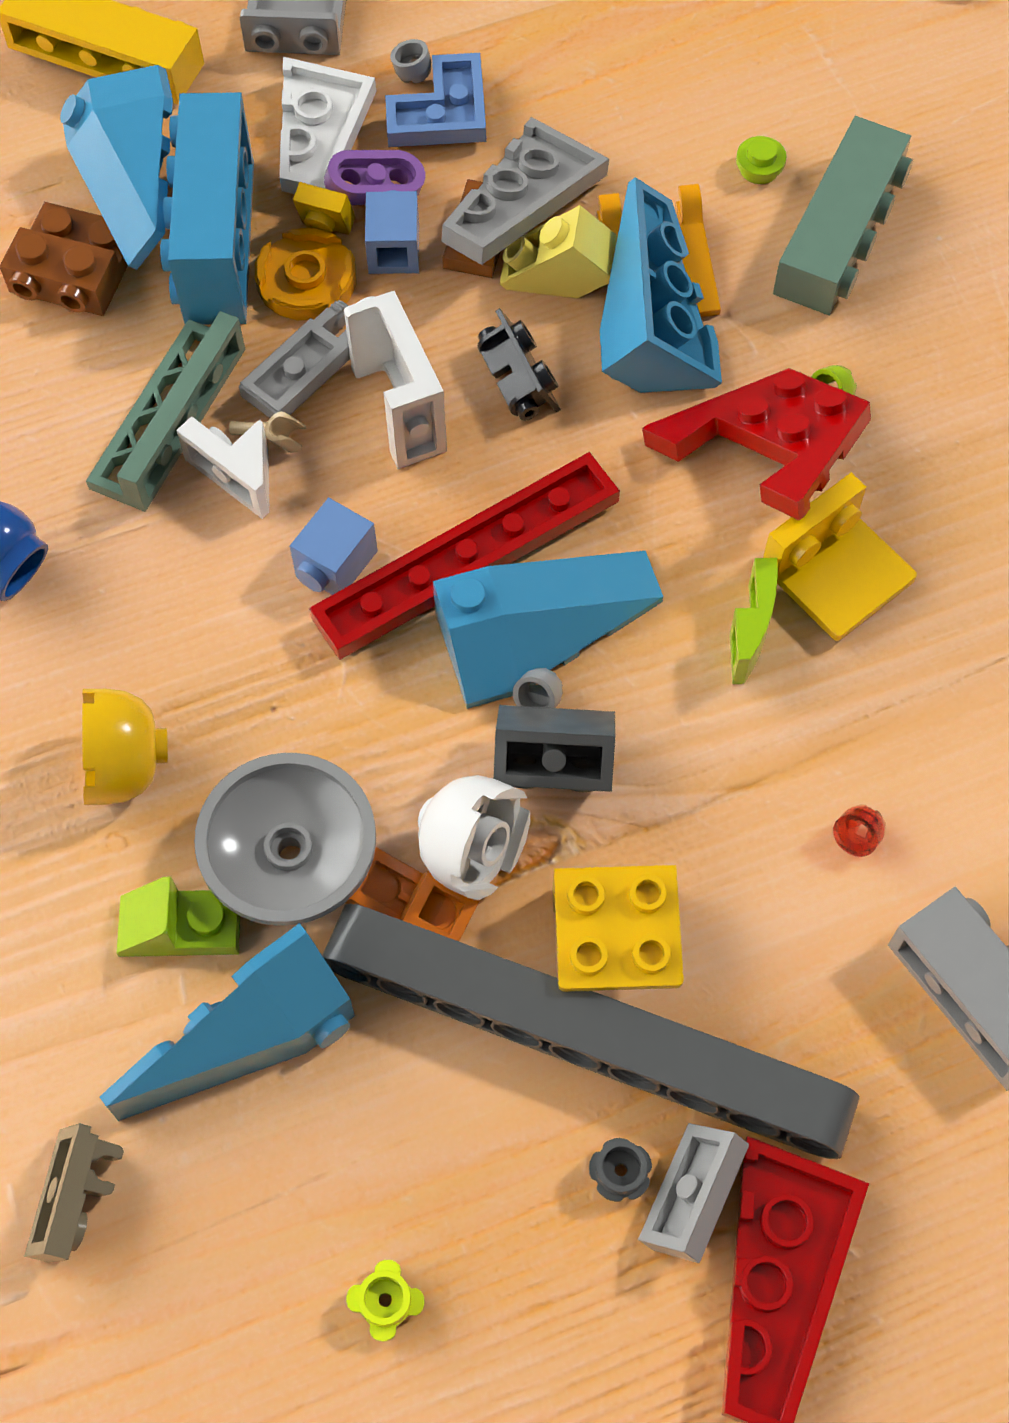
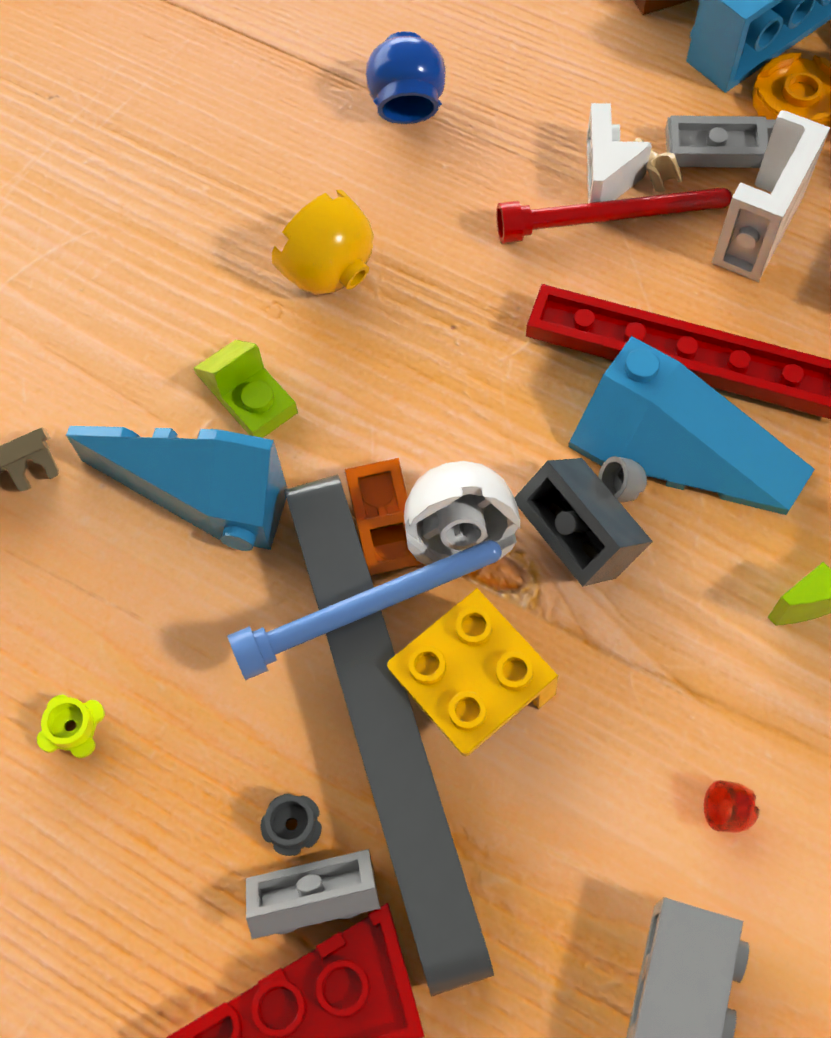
camera: 55 degrees right, 0 degrees up
(192, 394) = (633, 93): sand green fence -> none
(224, 579) = (520, 220): none -> red piece
(278, 805) = (346, 373): light grey dish -> none
(333, 548) = (603, 263): medium blue brick -> none
(462, 1082) = (258, 648): none -> medium blue piece

